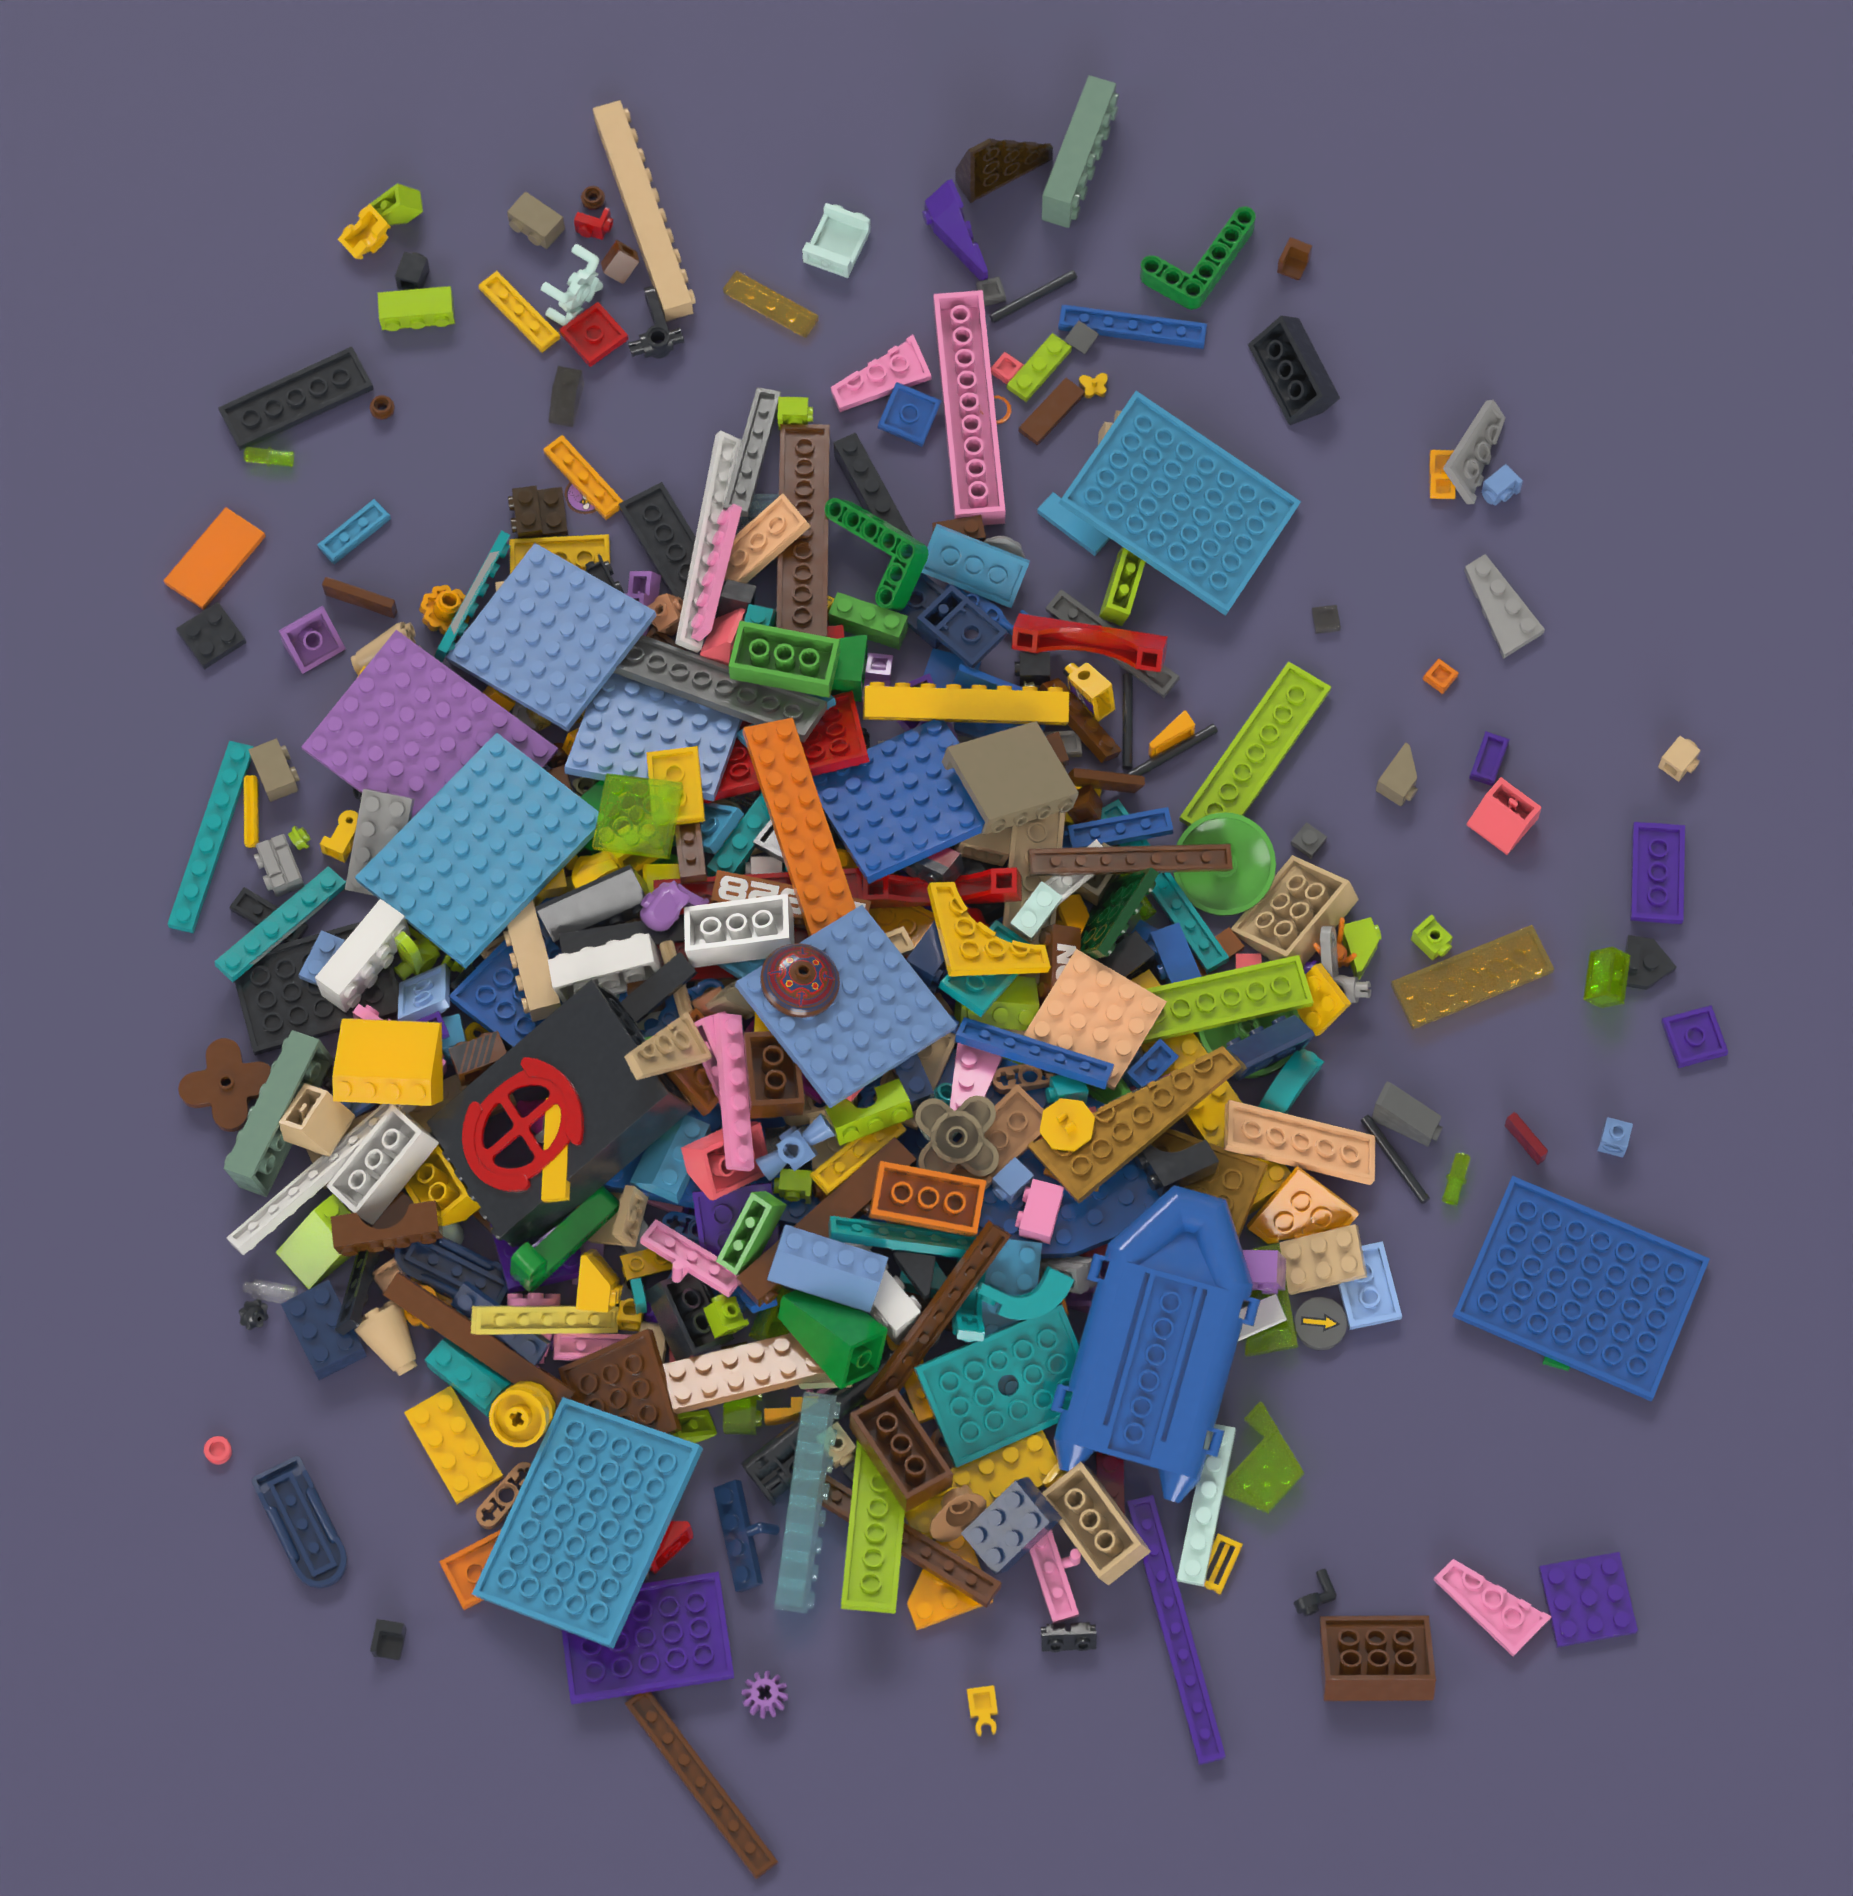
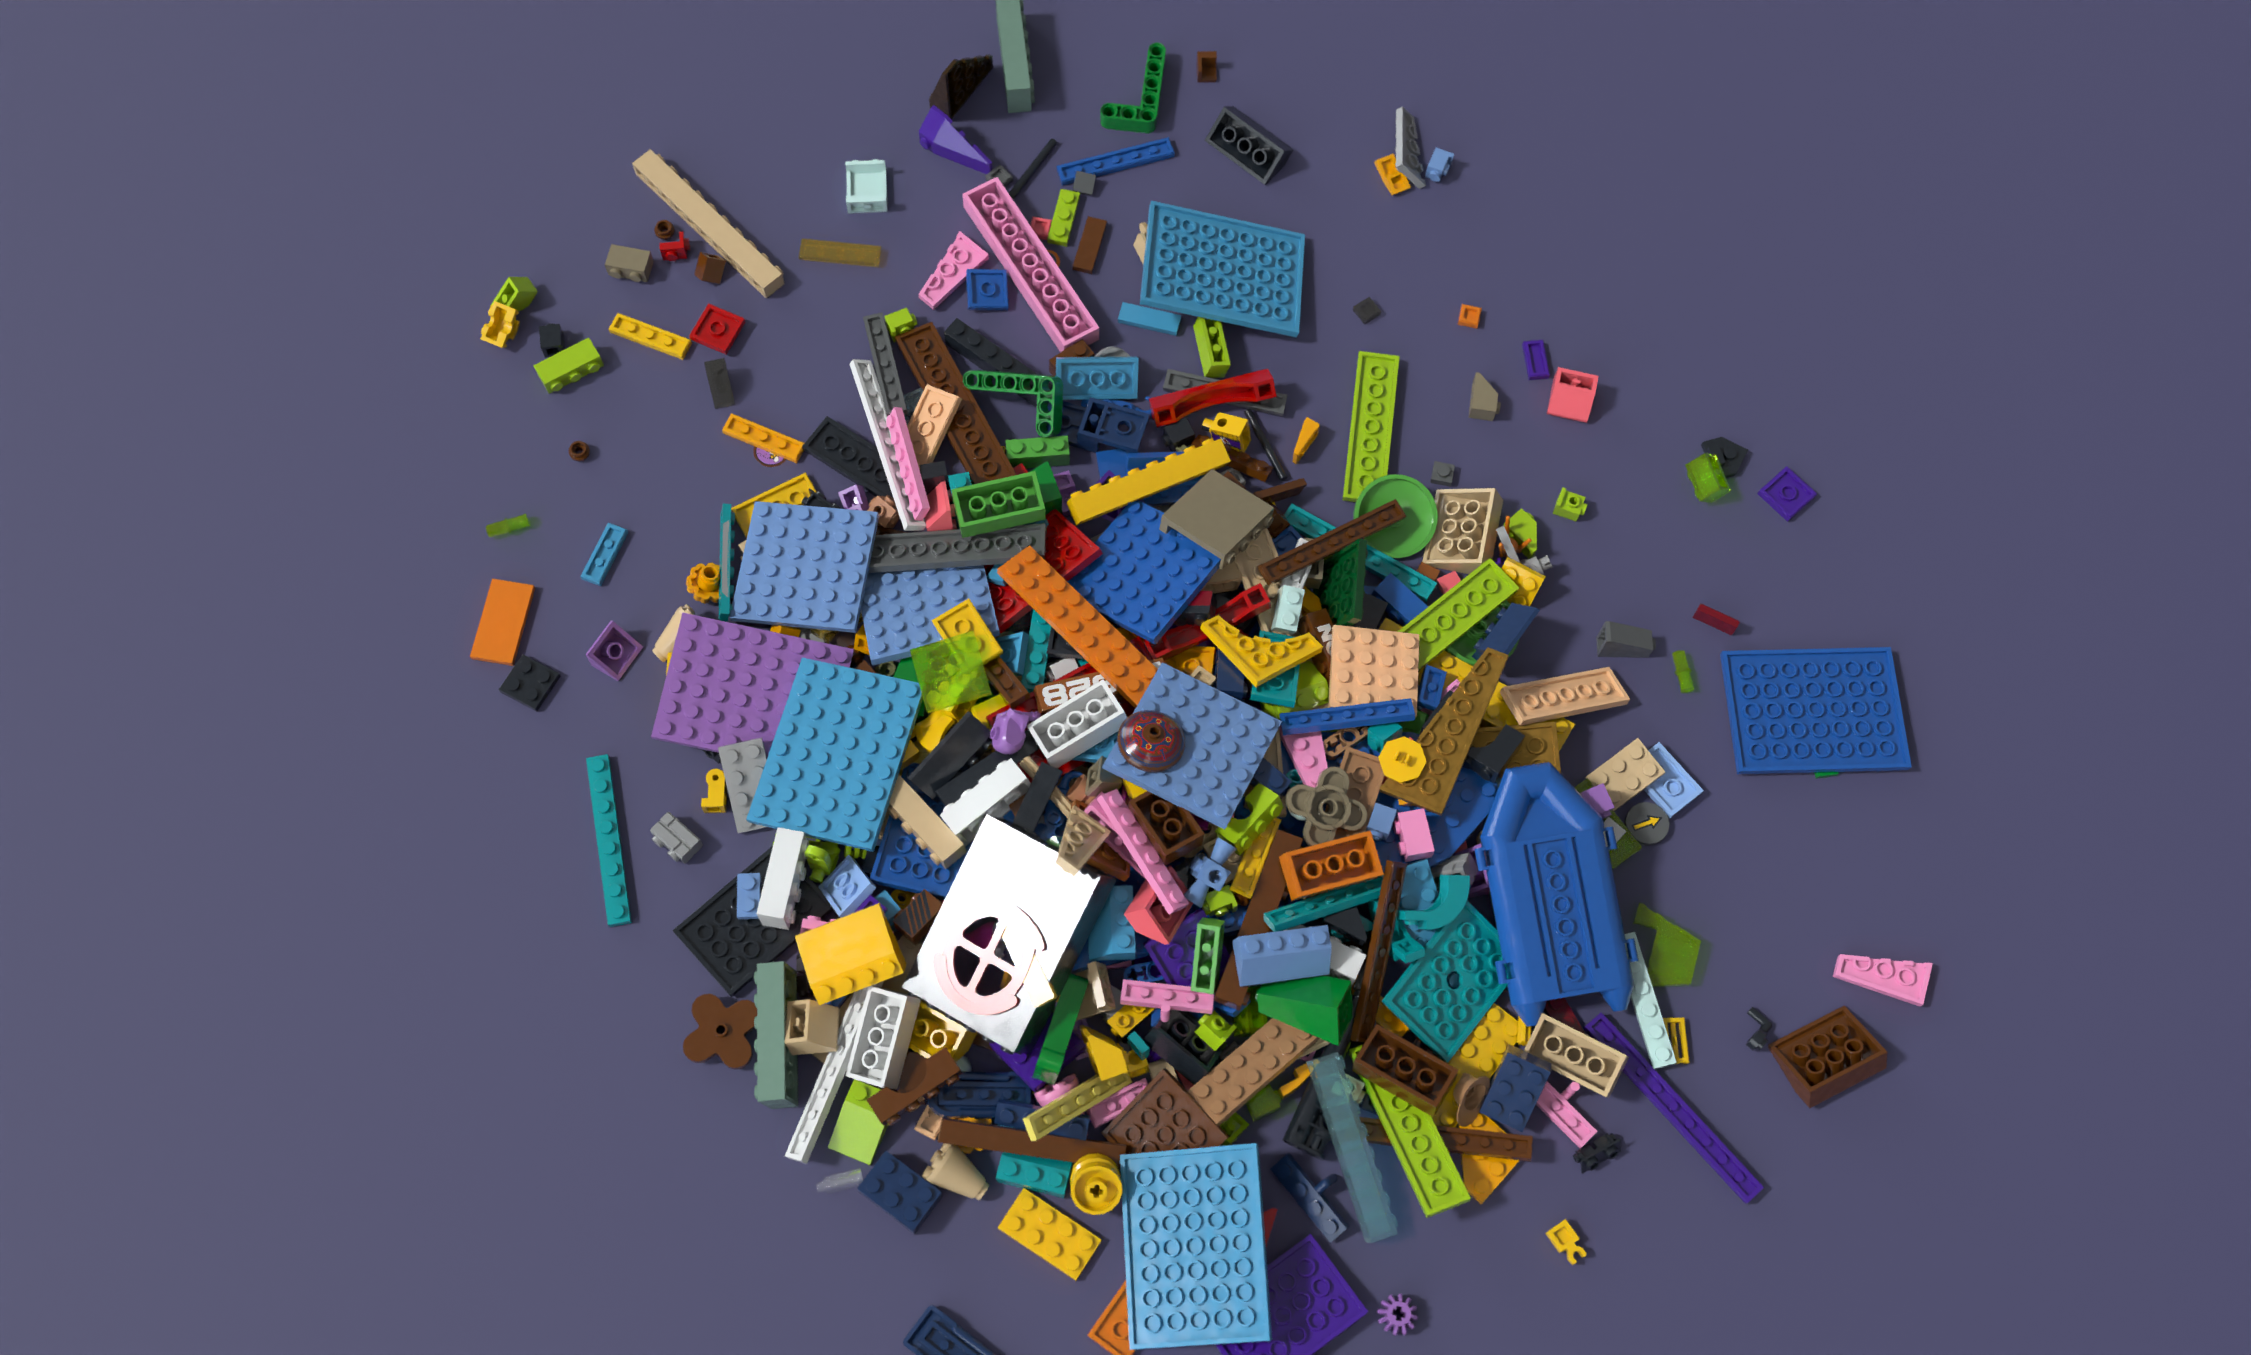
camera: 30 degrees left, 0 degrees up
(218, 1450) = (862, 1332): coral tile -> none
(251, 816) = (631, 805): yellow axle -> none
(253, 1314) = (836, 1207): black plant -> none
(256, 909) = (686, 882): black tile -> none
(274, 770) = (634, 765): dark tan brick -> none
(280, 924) = (700, 884): teal plate -> none
(295, 398) = (506, 472): black plate -> none
(299, 838) = (681, 809): lime plate -> none
(356, 1291) = (914, 1150): black plate -> none
(359, 597) = (635, 602): reddish brown tile -> none
(488, 1506) = (1102, 1270): medium nougat beam -> none
(538, 512) = (742, 479): dark brown plate -> none
(581, 288) = (693, 297): light aqua plate -> none
(659, 331) = (767, 305): black piece -> none
(1094, 385) = (1110, 214): yellow piece -> none
(1122, 828) = (1309, 523): blue plate -> none
(1174, 751) = (1311, 451): black bar -> none
(1291, 1081) = (1532, 655): teal arch -> none
(1300, 1209) = (1591, 745): light orange plate -> none
(1395, 1159) = (1632, 677): black bar -> none
(1472, 977) = (1612, 520): clear yellow plate -> none
(1506, 613) = (1489, 251): light grey wing -> none
(1588, 1599) = (1947, 937): dark purple plate -> none
(1615, 1137) = (1777, 590): medium blue brick -> none
(1657, 873) = (1697, 389): dark purple plate -> none
(1680, 758) = (1668, 302): tan brick -> none

